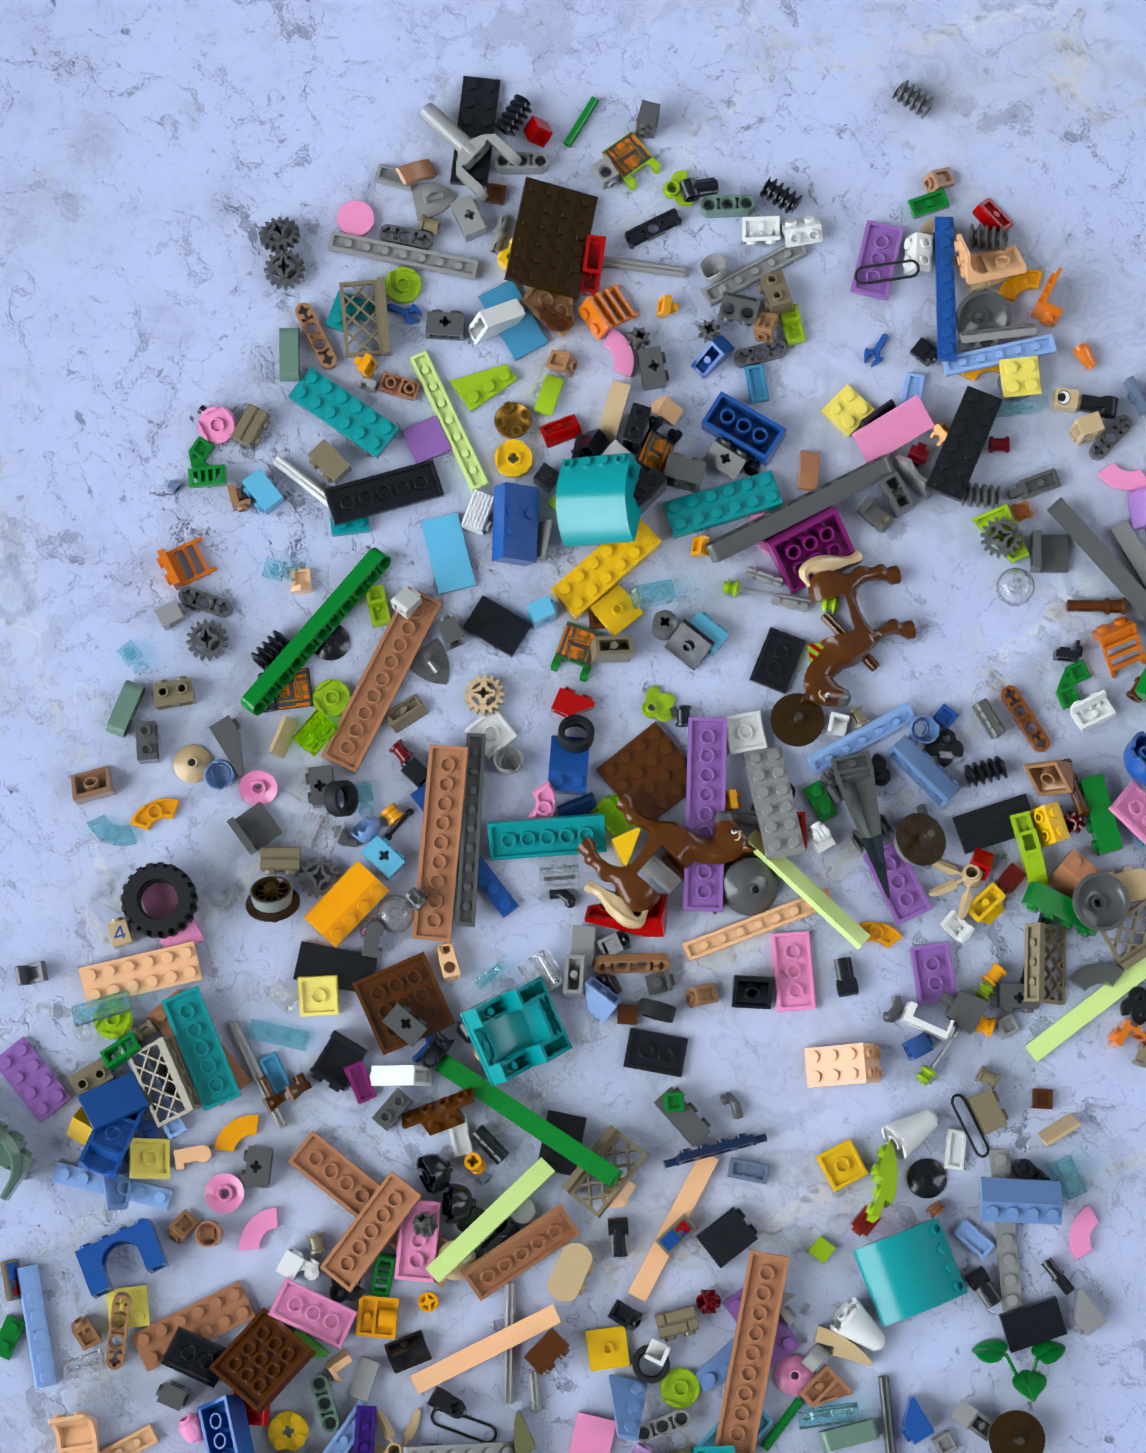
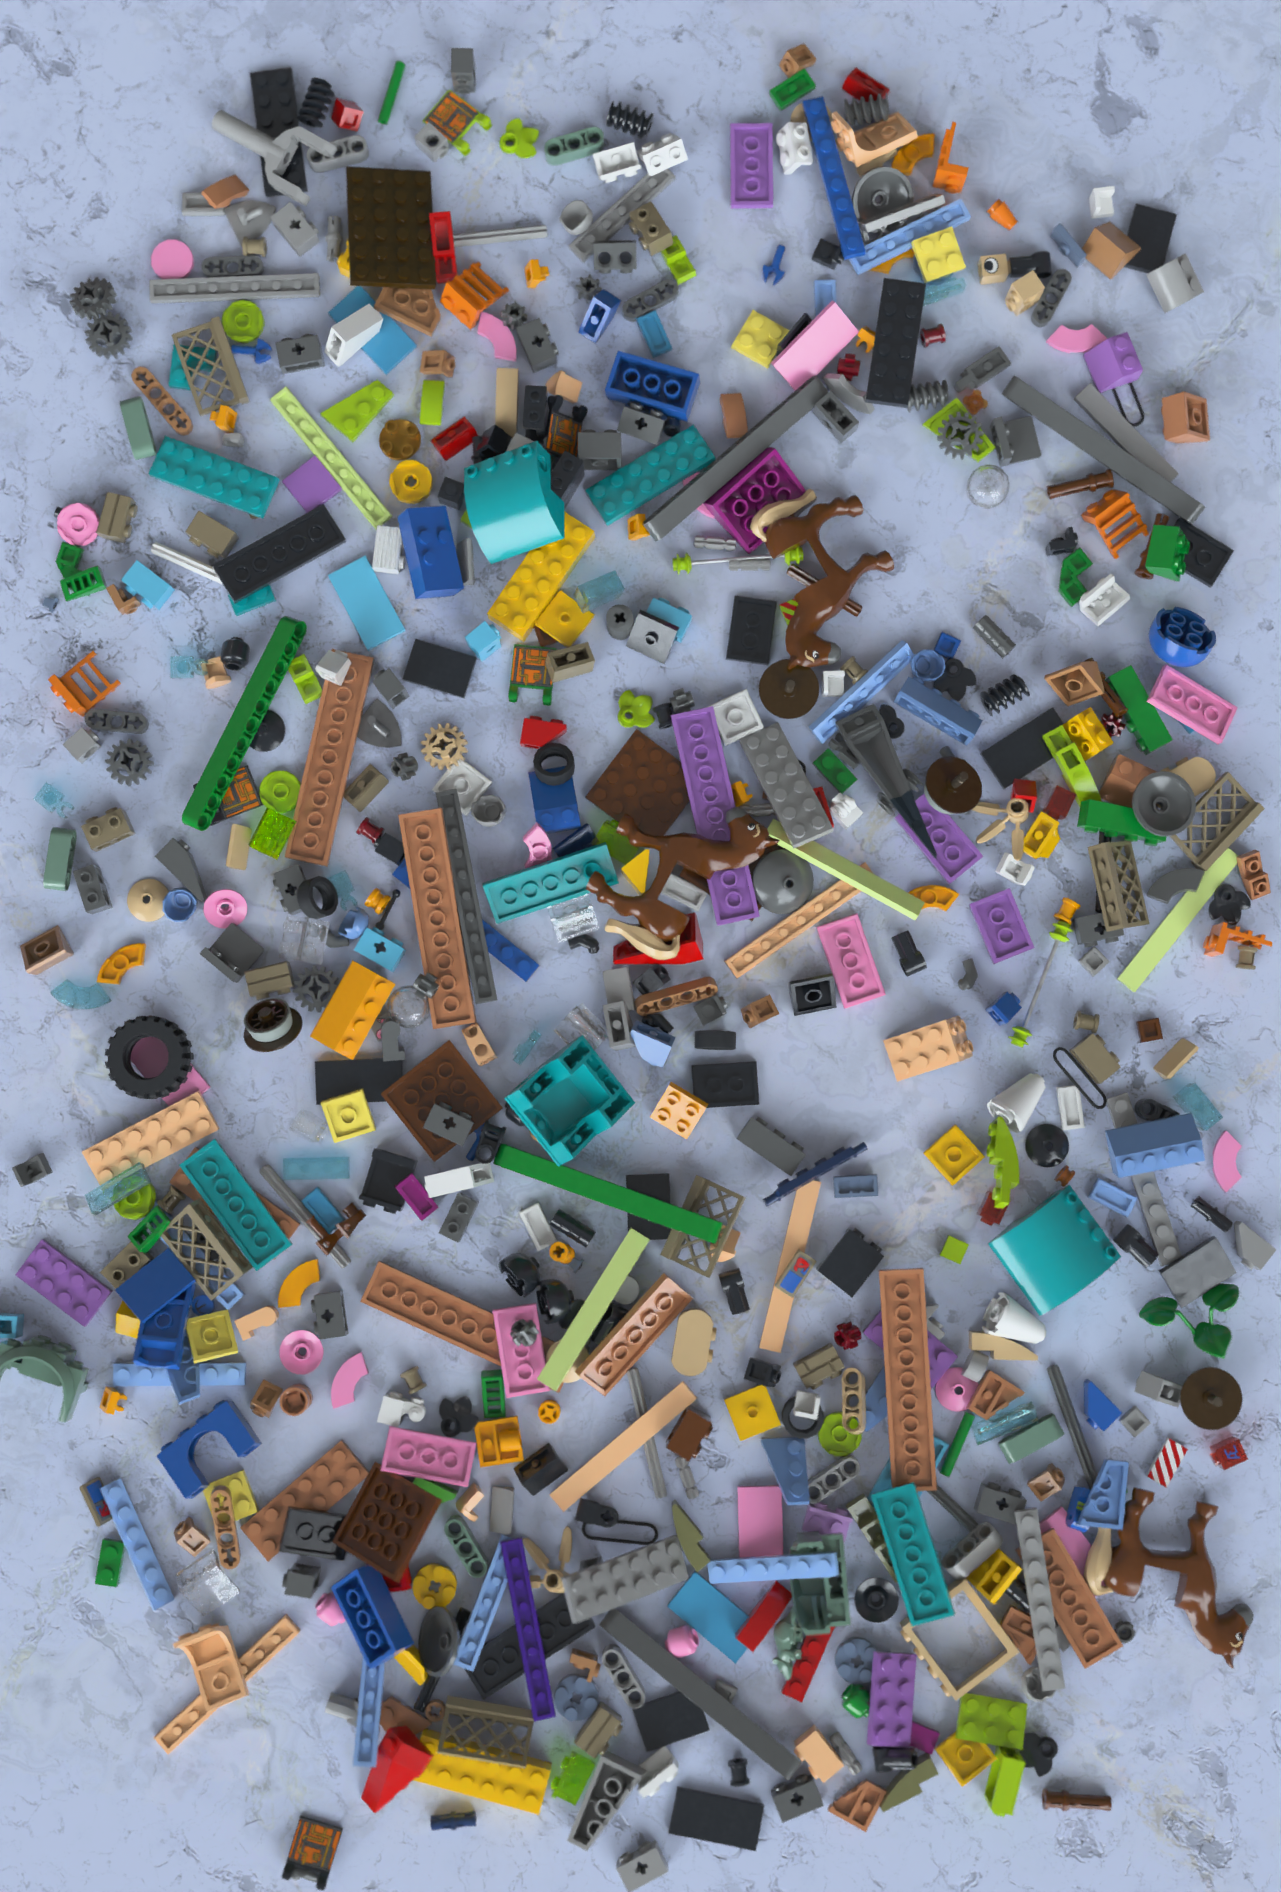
camera: 10 degrees left, 5 degrees up
(46, 1193) = (110, 1399): none -> light orange tile
(120, 933) = (117, 1102): tan brick -> none
(270, 649) = (199, 755): black piece -> none
(323, 569) = (235, 653): none -> black head
(371, 1231) = (468, 1353): nougat plate -> none
(398, 386) = (266, 433): nougat slope -> none
(441, 1113) = (511, 1209): reddish brown bracket -> none
(445, 703) = (404, 766): none -> dark grey gear
(496, 193) = (318, 195): reddish brown tile -> none
(553, 319) = (416, 318): reddish brown tile -> none
(609, 1064) = (679, 1110): none -> light orange plate
(627, 1014) = (684, 1052): reddish brown tile -> none
(663, 221) = (509, 181): black piece -> none
(674, 1102) = (758, 1134): green tile -> none
(694, 189) = (534, 135): black piece -> none
(699, 1351) = (859, 1410): none -> tan beam
(701, 707) = (681, 701): none -> dark grey gear
(734, 1103) = (823, 1118): dark grey arm -> none
(765, 326) = (648, 268): medium nougat bracket -> none
(874, 515) = (817, 446): dark grey leg -> none
(889, 279) = (768, 183): black piece -> none
(908, 1019) = (985, 980): white panel -> none
(964, 1010) = (1044, 956): dark grey torso -> none
(985, 1026) = (1070, 967): light orange wheel -> none
(1027, 717) = (1029, 630): dark orange beam -> none

